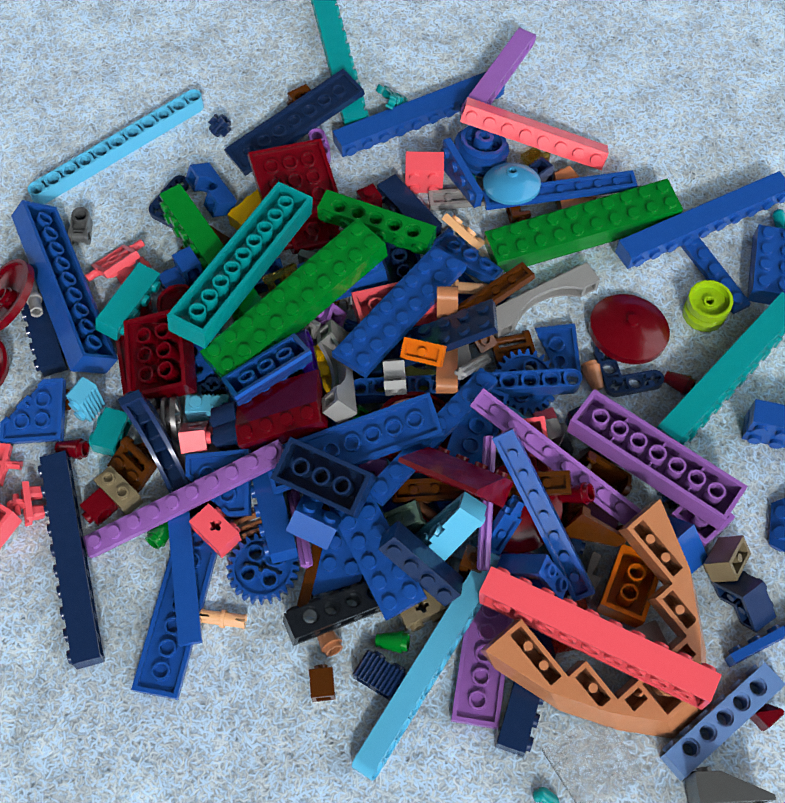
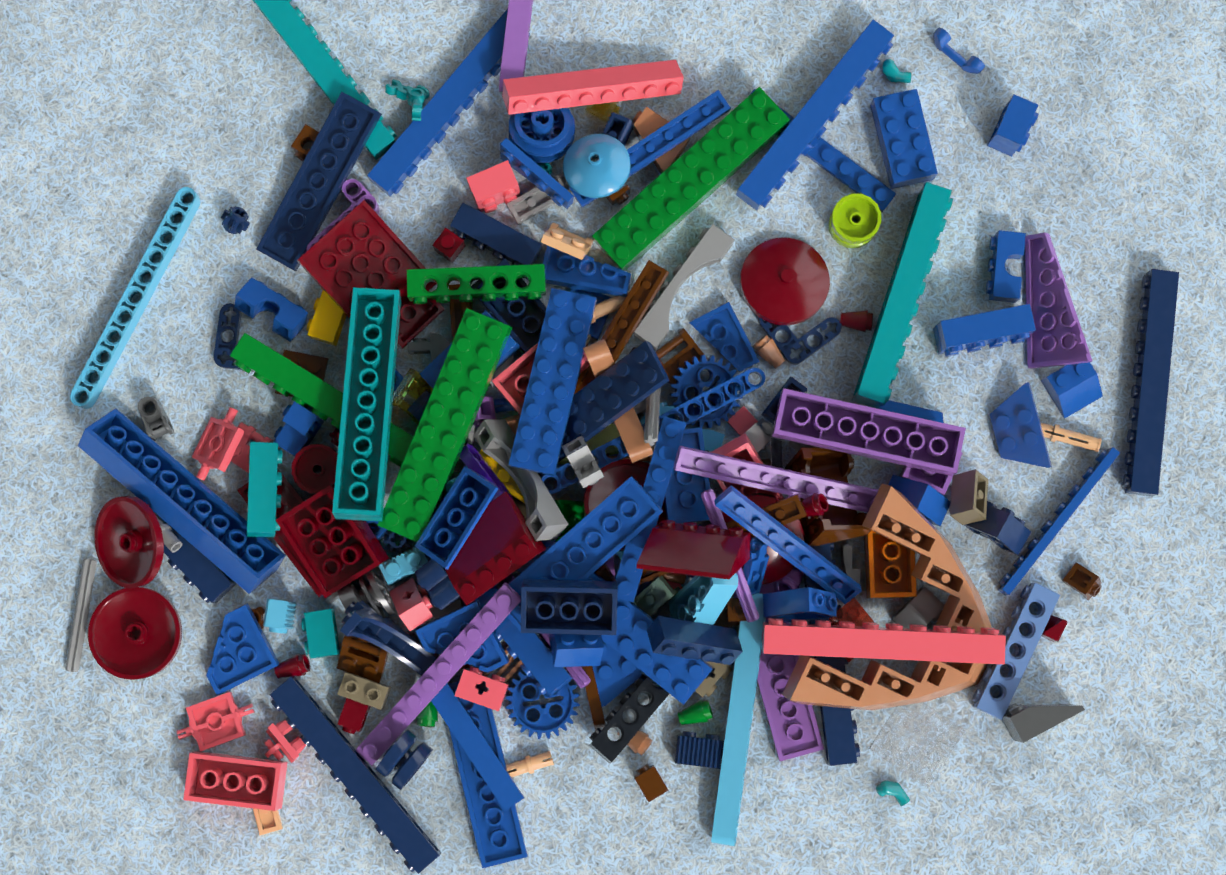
camera: 25 degrees left, 20 degrees up
(117, 558) = (402, 758): none -> dark blue wheel
(423, 351) = (601, 427): orange plate -> none

